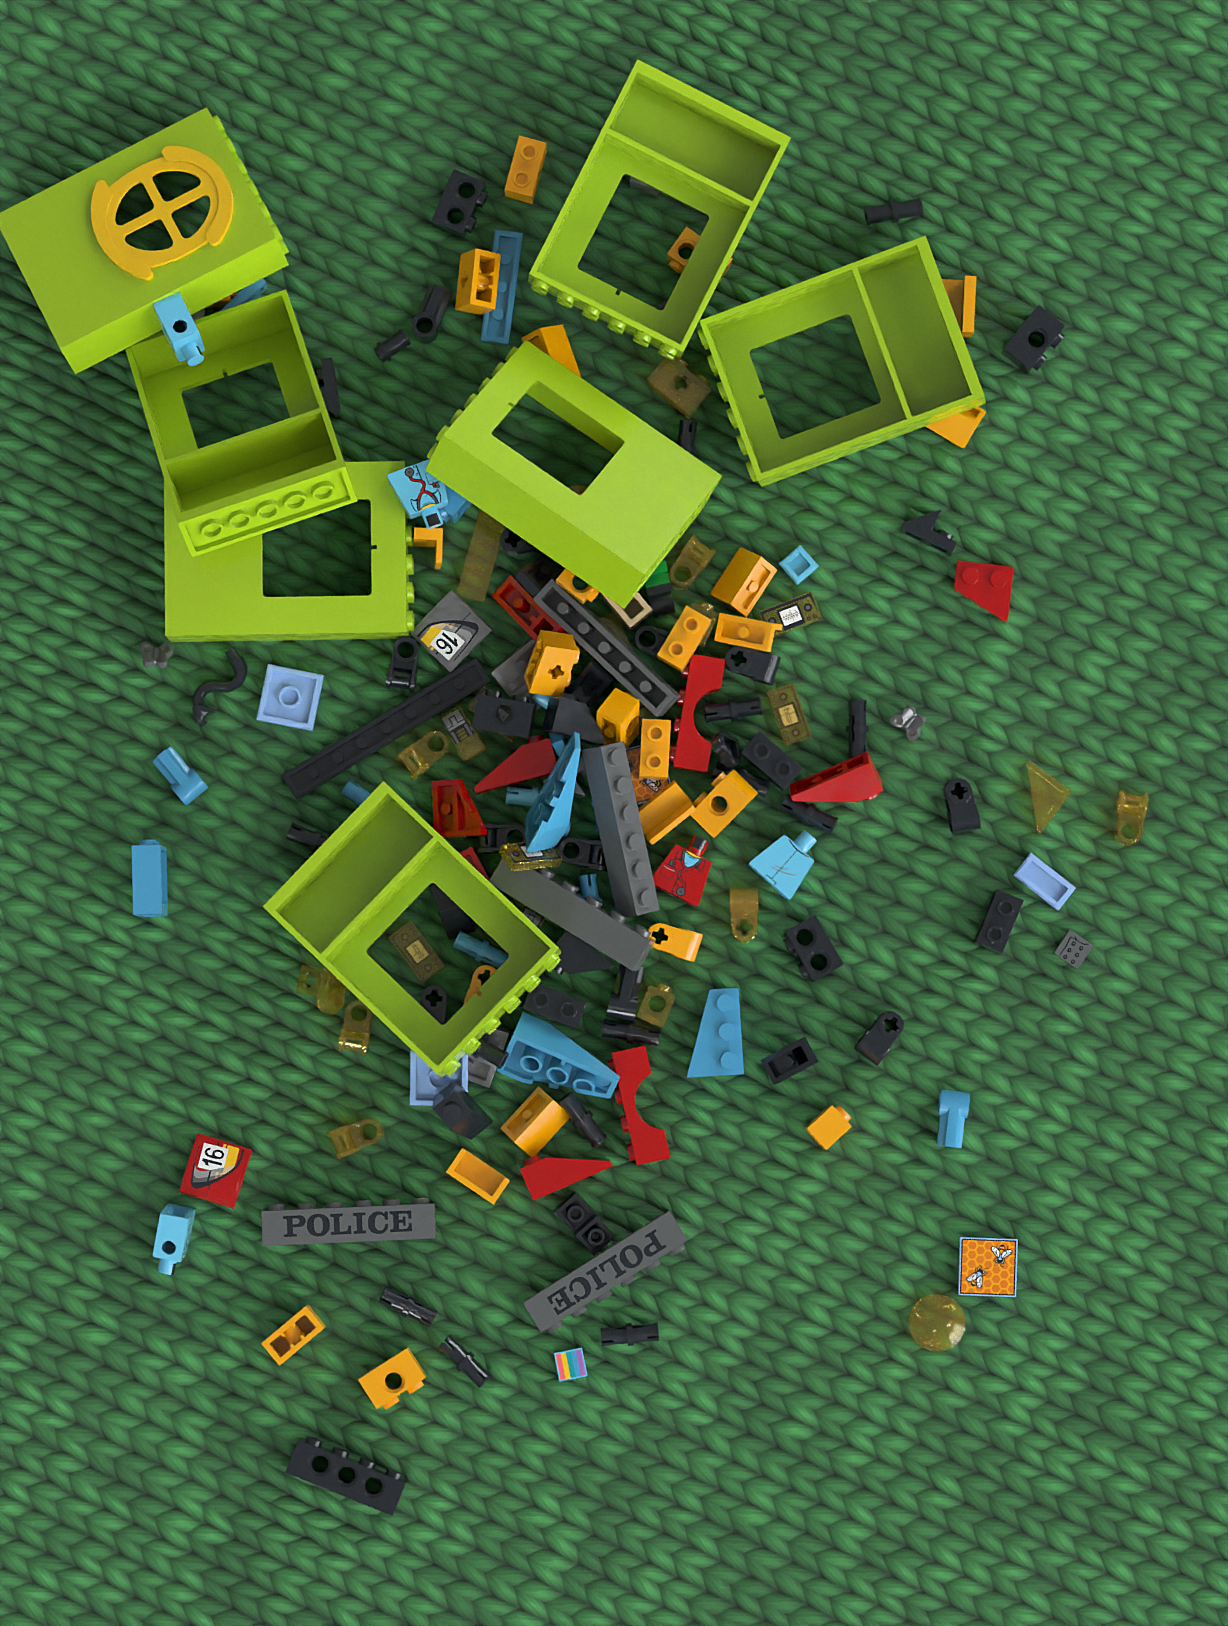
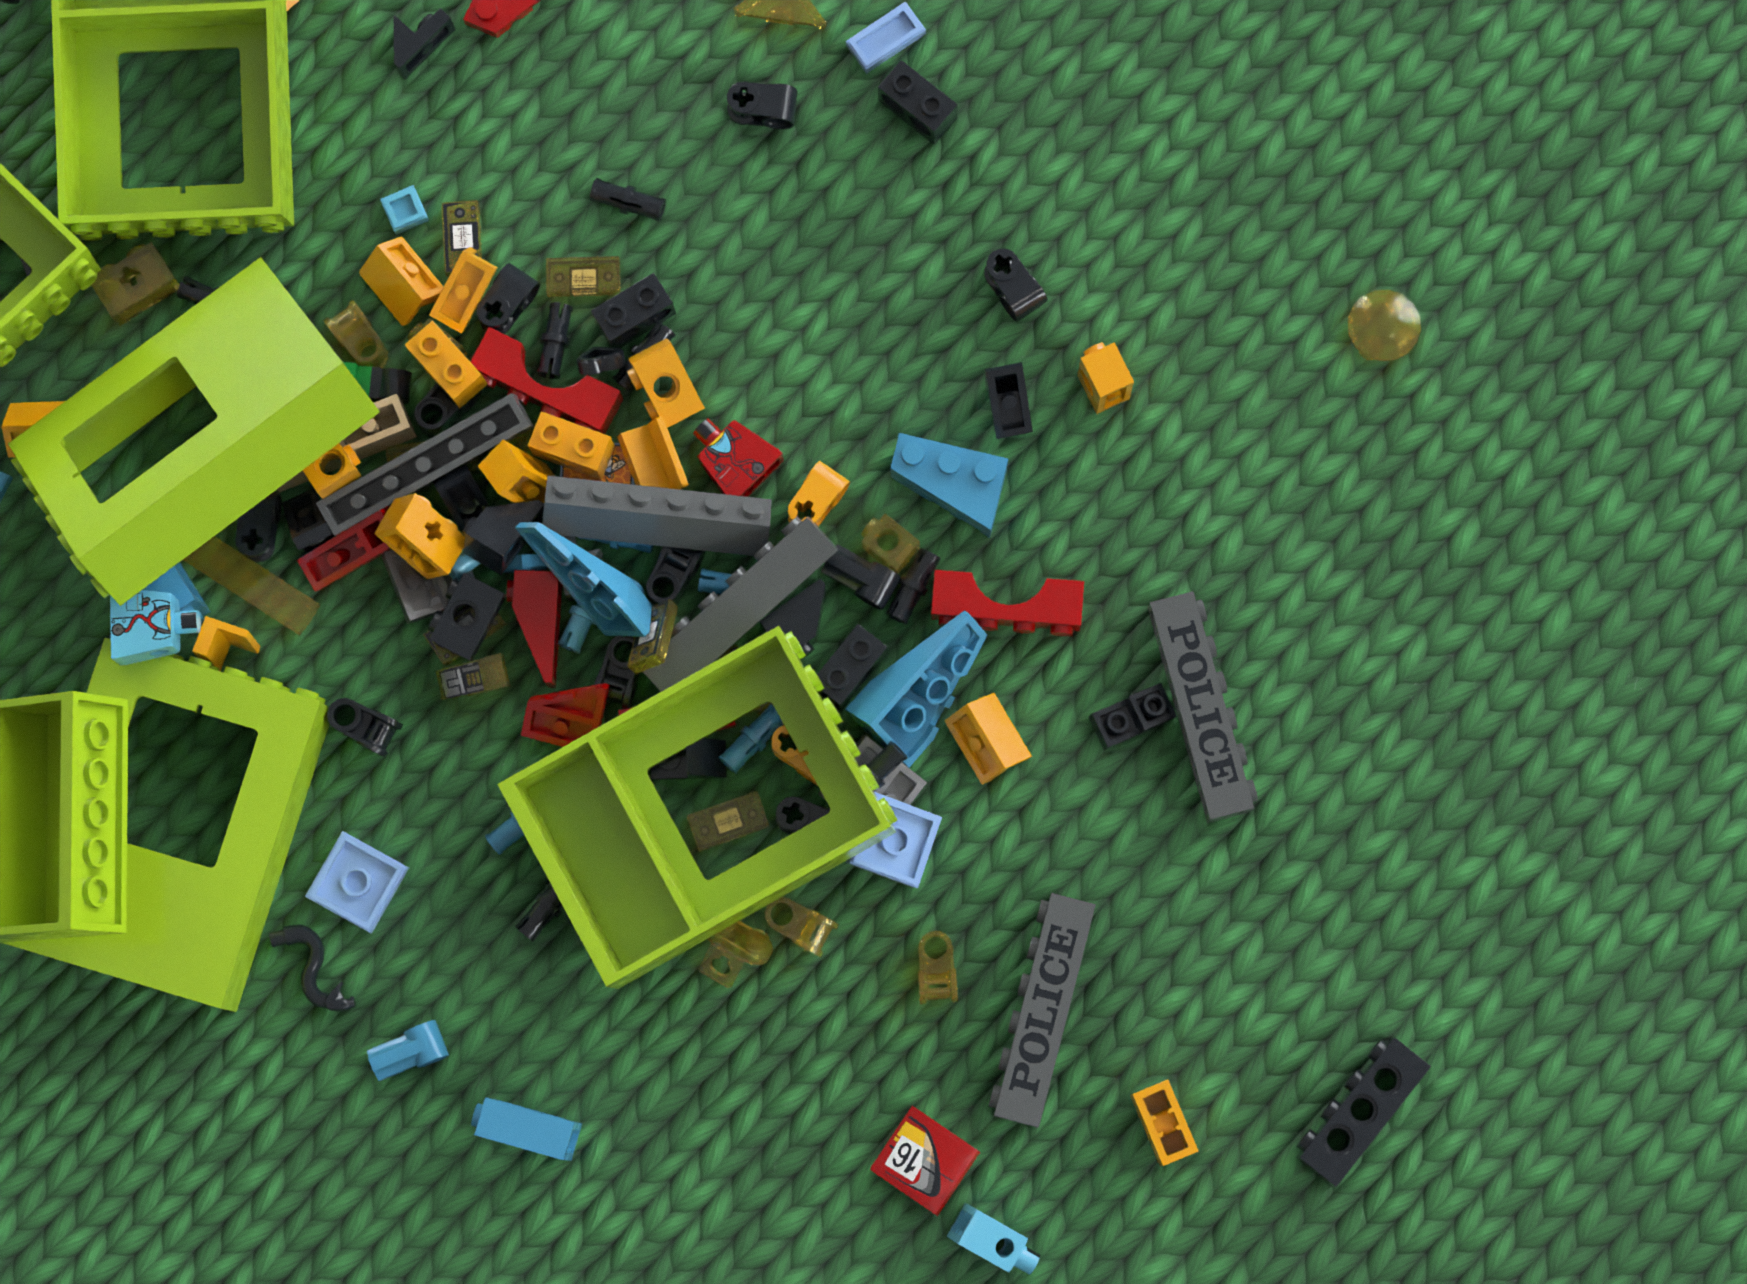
camera: 65 degrees left, 5 degrees down
(156, 655) = (246, 1036): dark grey piece -> none
(375, 1381) = (1255, 1038): light orange brick -> none
(386, 728) = (436, 774): black tile -> none
(407, 1306) = (1170, 968): black pin -> none
(422, 754) = (483, 736): clear yellow piece -> none
(451, 630) = (341, 653): slope -> none
(460, 1111) = (944, 824): black slope -> none
(464, 1361) = (1260, 918): black pin -> none
(478, 1176) = (1034, 828): light orange panel -> none
(552, 1173) = (1059, 737): red slope -> none
(570, 1364) = (1303, 787): tile -> none
(582, 1119) = (1002, 678): black pin -> none
(629, 1334) = (1288, 702): black pin -> none
(744, 908) = (803, 400): clear yellow piece -> none
(785, 863) = (765, 334): medium azure torso -> none
(809, 814) = (712, 288): black pin -> none
(819, 945) = (877, 323): black brick -> none
(845, 782) = (687, 229): red slope -> none
(910, 721) = (639, 134): dark grey piece -> none
(953, 1110) = (1131, 227): dark azure piece -> none
(987, 1266) = (1333, 245): tile -> none
(1073, 949) = (978, 28): dark grey tile -> none

